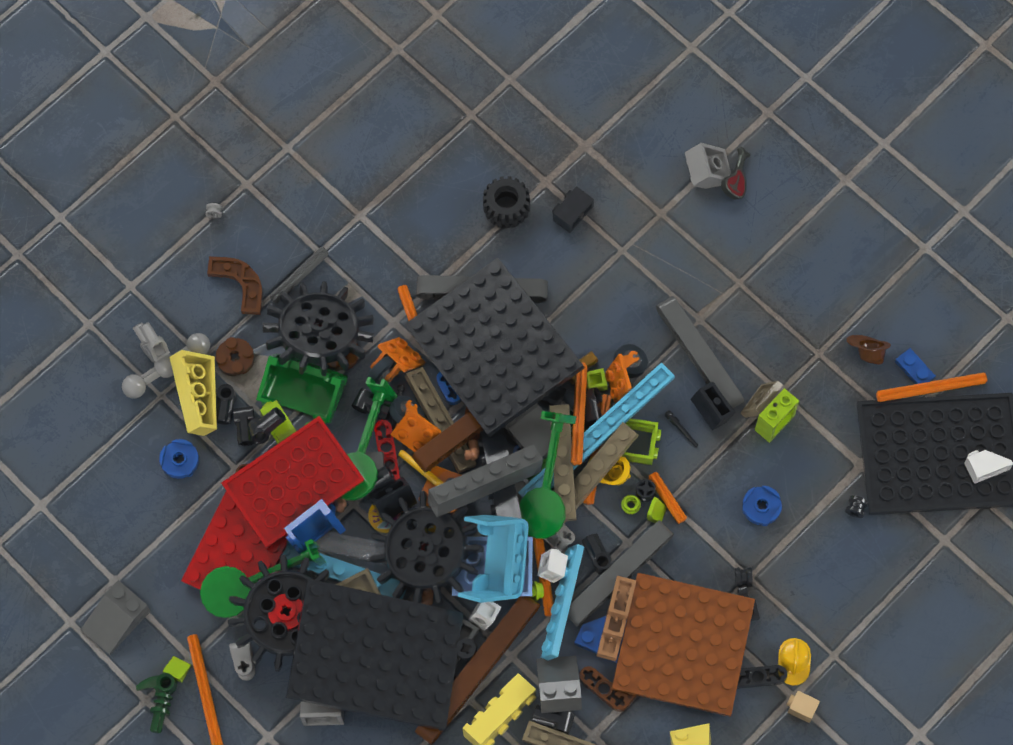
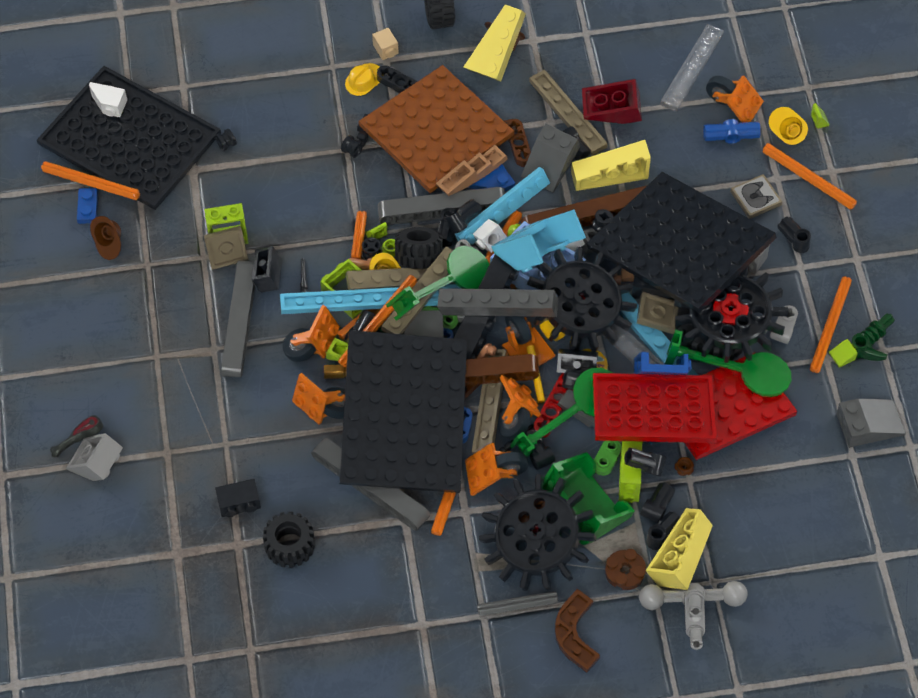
camera: 145 degrees left, 10 degrees down
(173, 450) = (730, 523): blue plate -> none
(566, 325) = (316, 402): none -> orange plate
(587, 556) = (458, 218): none -> black piece
(613, 517) = (418, 247): none -> black tyre
(640, 471) = (362, 264): none -> nougat arm
(759, 516) = (293, 194): blue plate -> none

